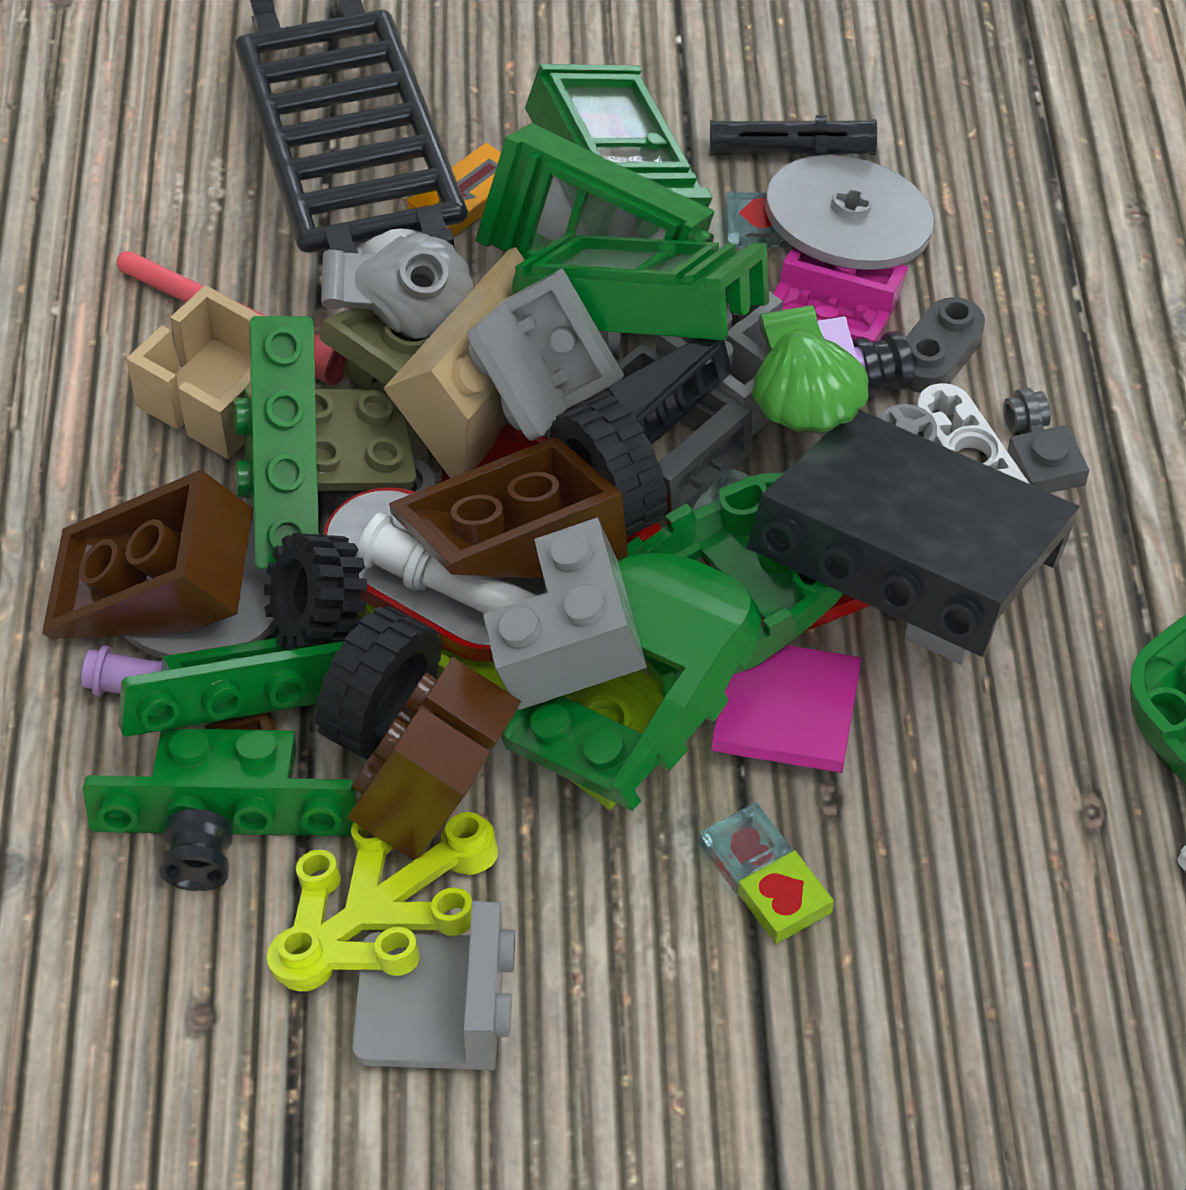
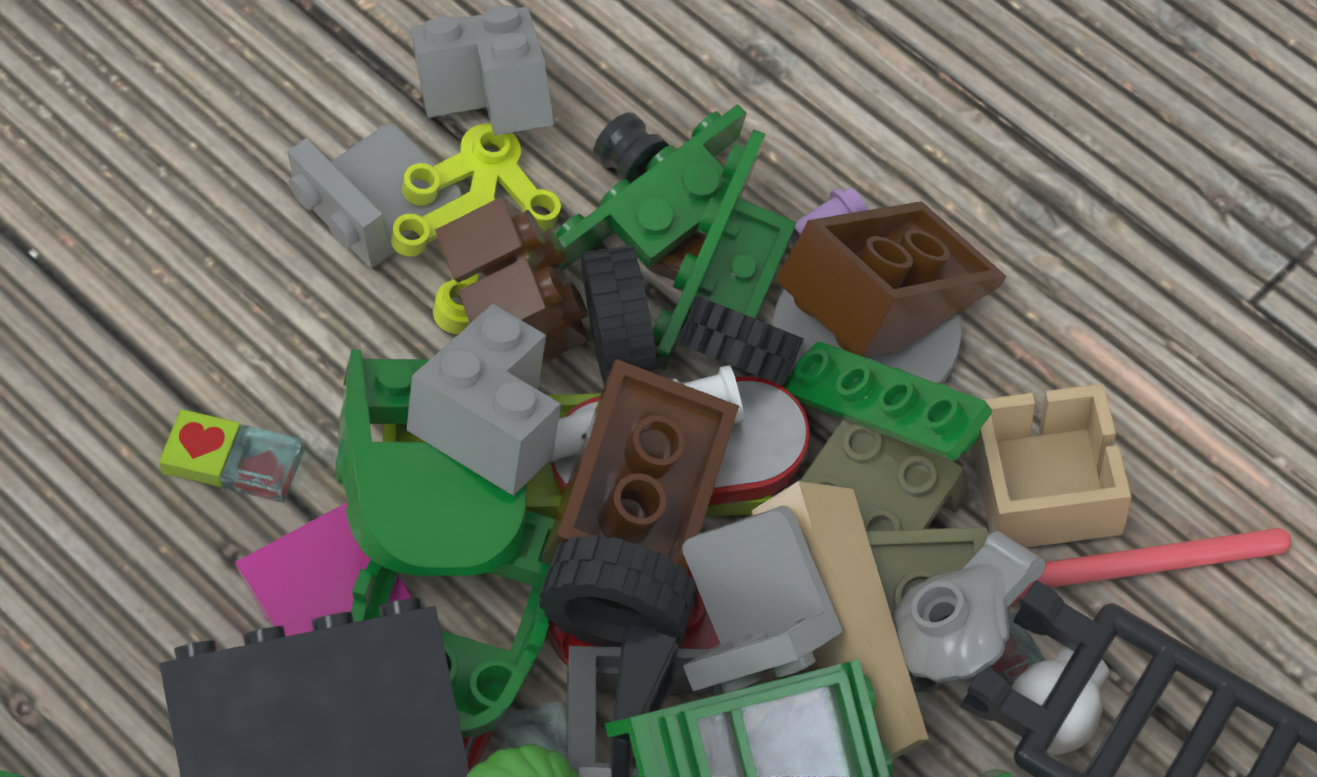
camera: 140 degrees right, 5 degrees up
(214, 1002) = (482, 64): none -> light grey brick

